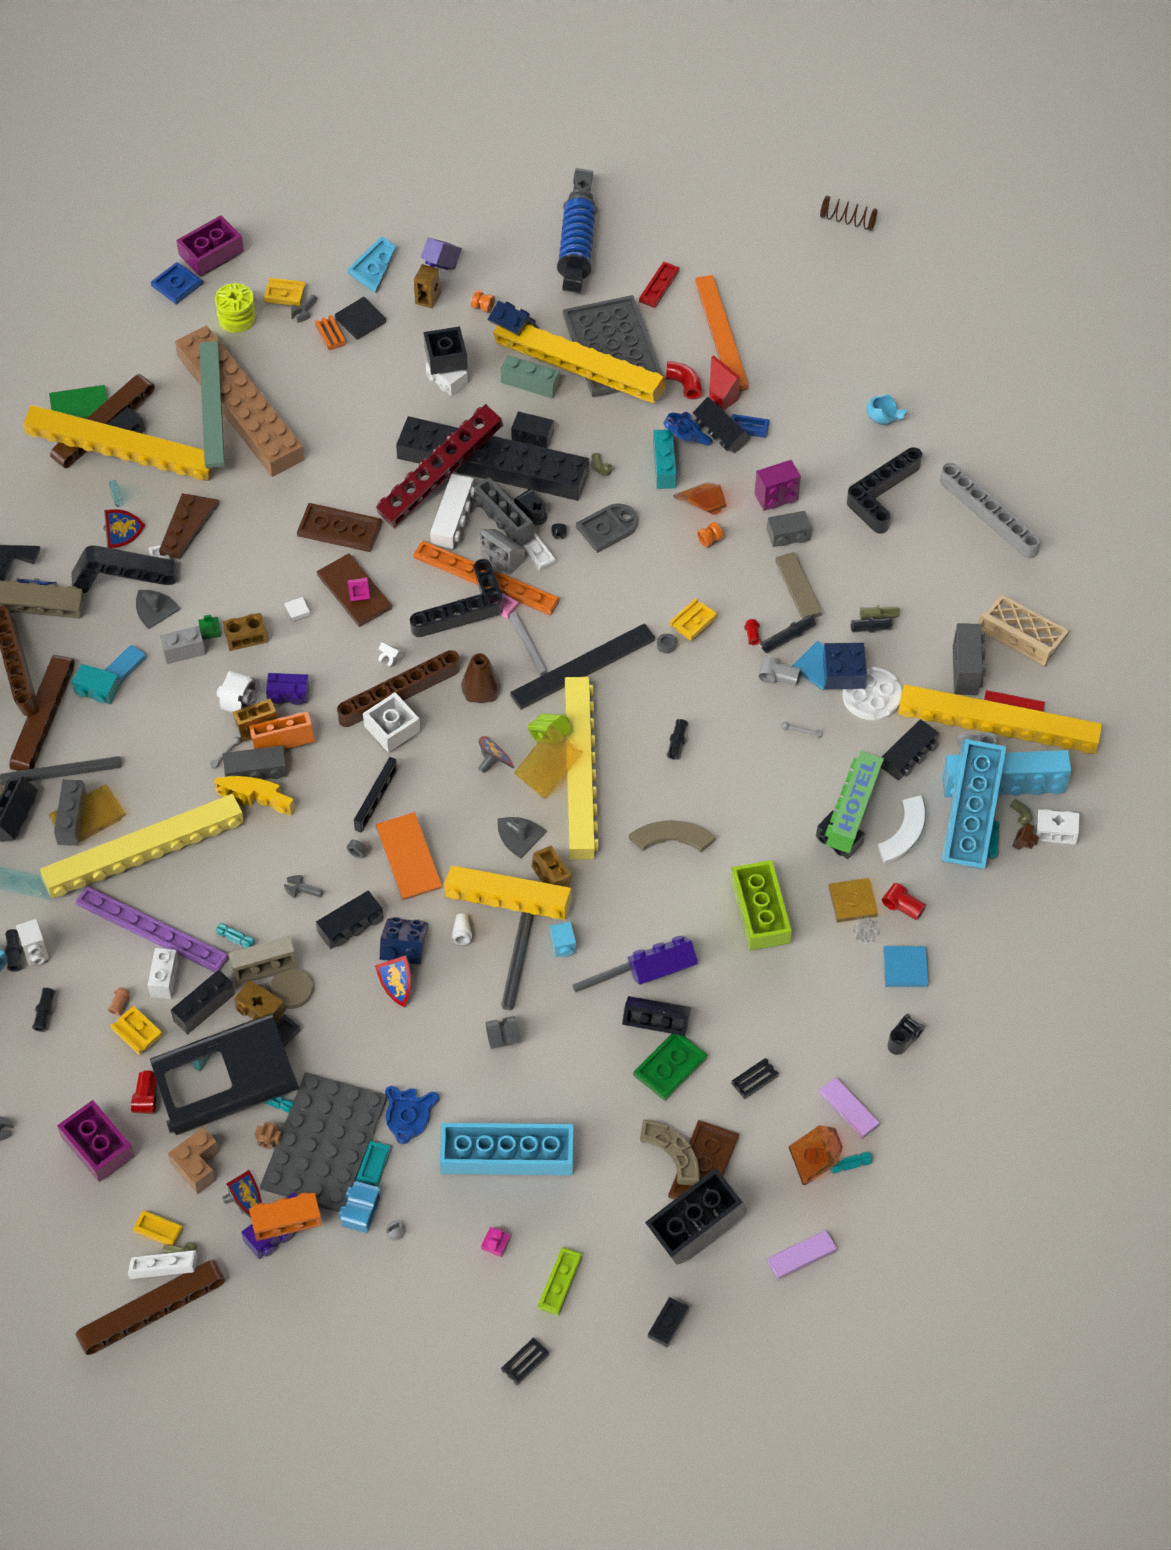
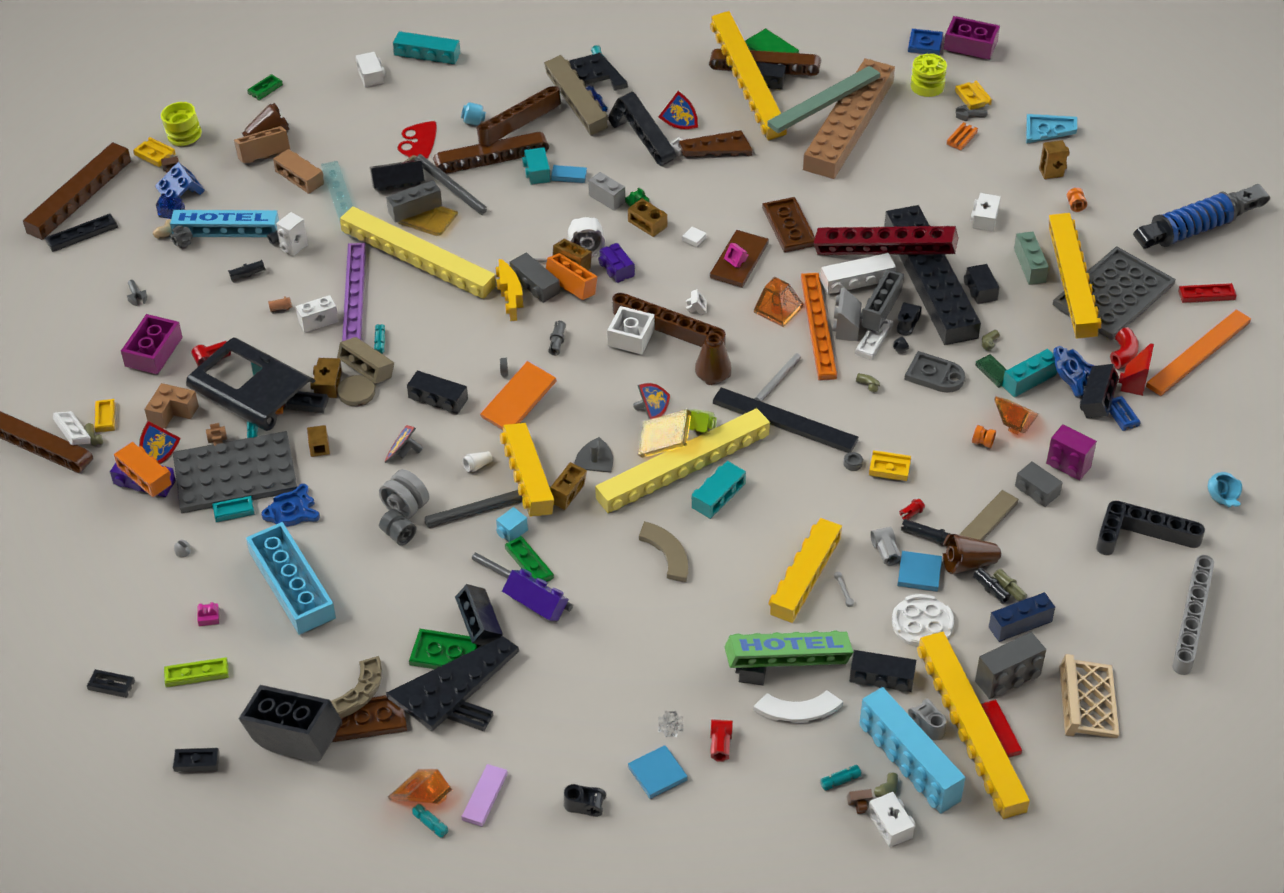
camera: 60 degrees right, 10 degrees down
(115, 492) = (709, 98): clear light blue tile -> none
(136, 1030) = (261, 324): yellow plate -> none
(154, 607) = (632, 165): dark grey shield -> none
(203, 1002) = (306, 345): black brick -> none
(300, 887) = (449, 354): dark grey bar -> none
(340, 1049) = (318, 440): none -> pearl gold brick
(349, 787) = (557, 337): none -> dark grey pin
(360, 318) = (992, 145): black tile -> none
(360, 1207) = (187, 516): dark azure brick -> none
(375, 794) = (561, 353): black tile -> none
(403, 938) = (439, 426): dark blue bracket -> none
(436, 588) = (778, 302): none -> clear orange slope
(440, 254) = (1088, 148): brick -> none
(445, 350) = (996, 191): black brick -> none
(463, 606) = (786, 332): black beam -> none
(472, 1006) = (404, 493): none -> light grey wheel
(509, 318) = (1068, 214): dark blue bracket -> none
(509, 605) = (802, 347): bright pink tile -> none
(583, 577) = (870, 380): none -> olive arm
(608, 947) = (528, 559): none -> green tile
(632, 759) = (718, 489): none -> teal brick
(637, 483) = (992, 369): none -> clear green tile
(677, 739) = (762, 509): black pin -> none
(719, 1082) = (444, 689): none -> black wing
(760, 905) = (637, 635): lime brick -> none
(768, 744) = (805, 570): none -> yellow brick
(801, 1254) = (317, 826): lavender tile -> none
(832, 621) = (968, 553): none -> reddish brown cone
(844, 666) = (925, 581): dark blue brick -> none
(853, 900) = (698, 703): clear yellow tile -> none
(919, 623) = (1021, 617): none -> dark blue brick
(973, 804) = (846, 730): medium azure brick -> none

